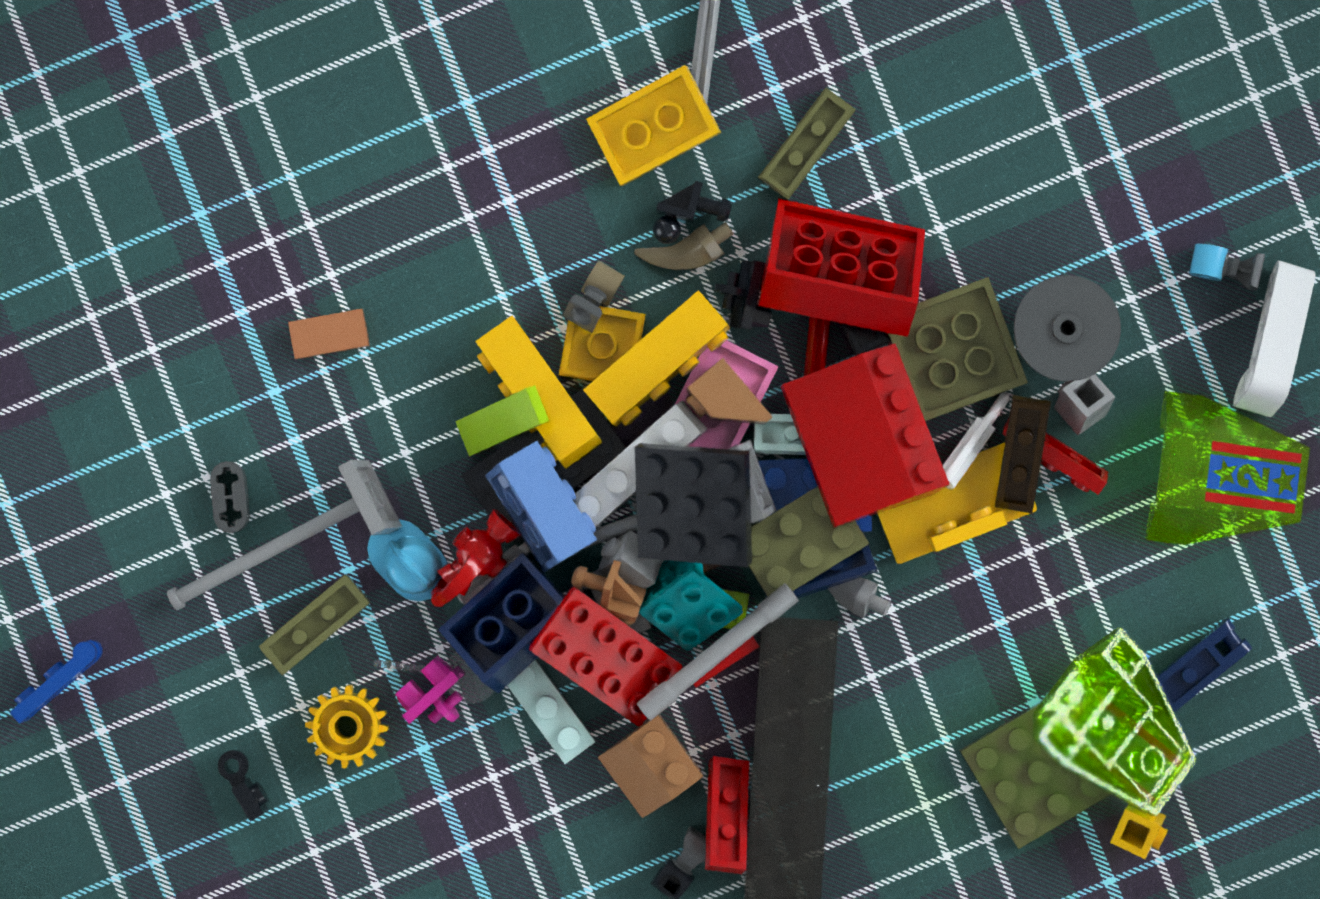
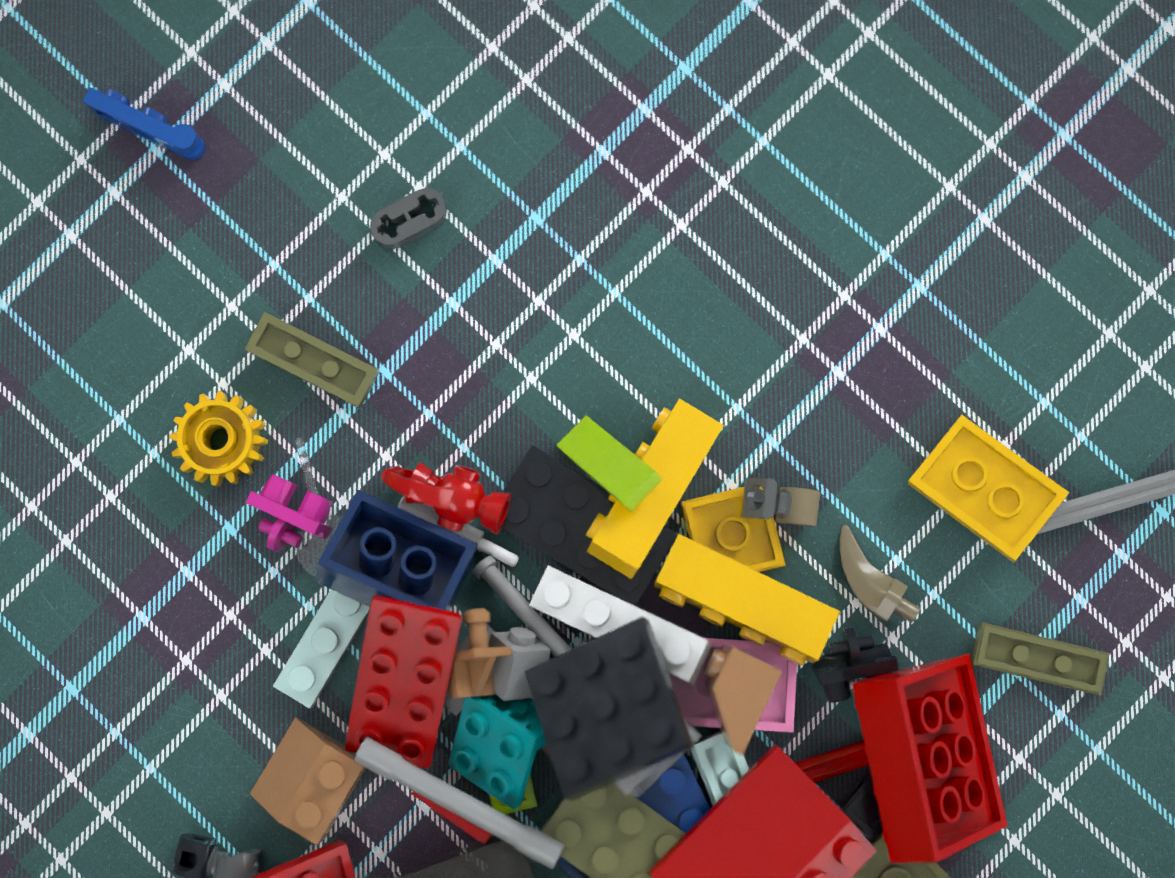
camera: 65 degrees right, 5 degrees down
(249, 795) = (106, 365): black plate -> none
(329, 334) = (620, 247): nougat tile -> none
(367, 498) = (464, 357): light grey tile -> none
(407, 561) = (421, 425): medium azure piece -> none
(541, 505) = (536, 543): medium blue slope -> none
(683, 207) = (913, 556): black piece -> none

